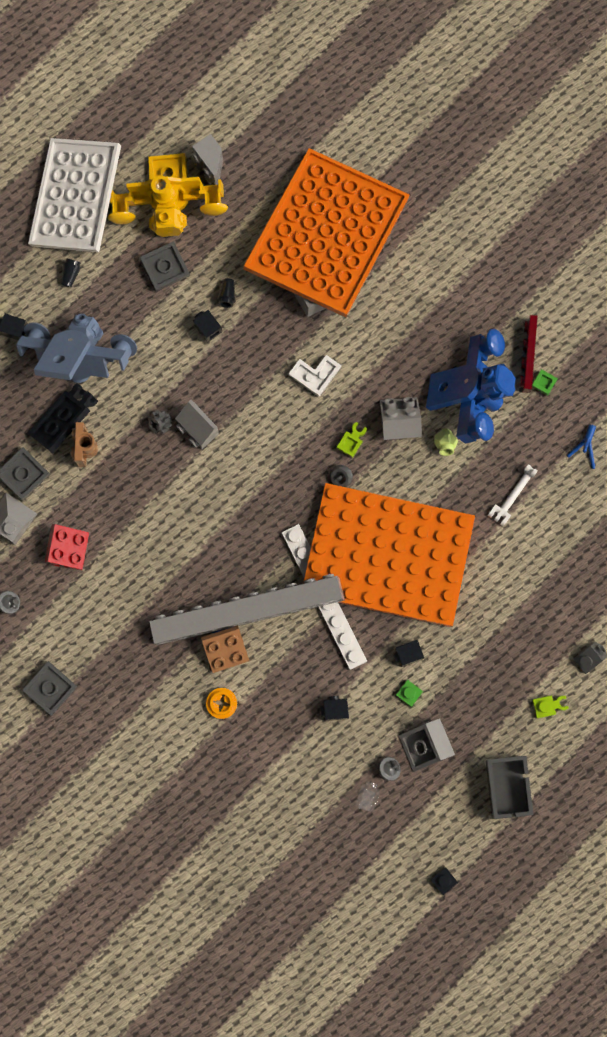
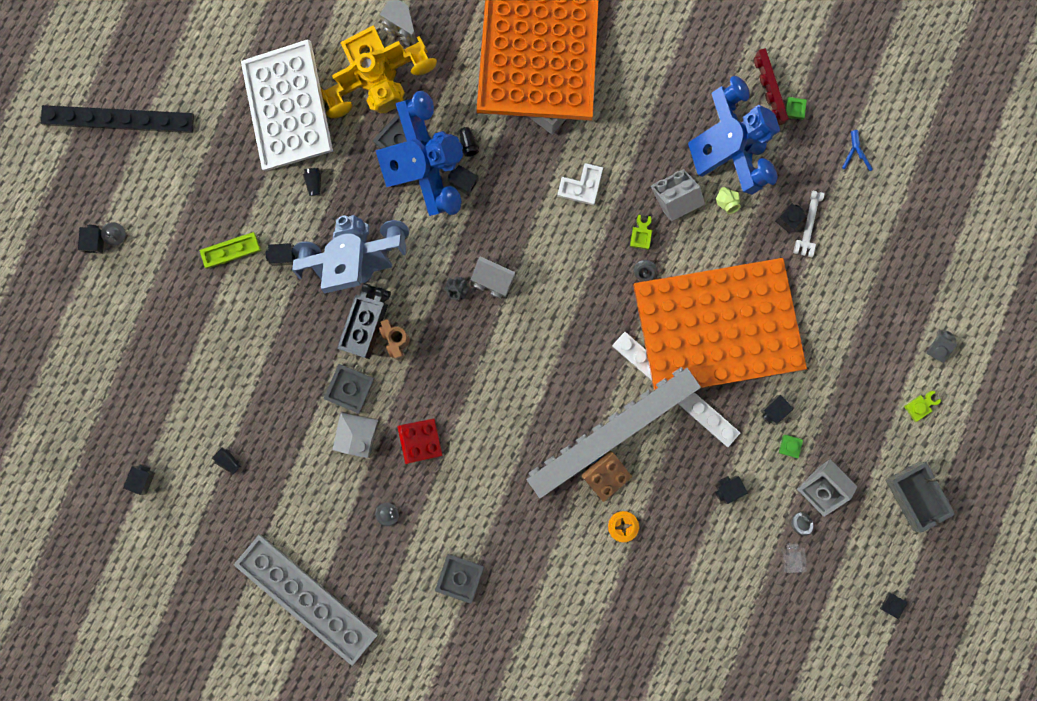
camera: 25 degrees left, 5 degrees up
(178, 289) = (423, 157): none -> blue piece
(497, 481) = (791, 217): none -> black brick

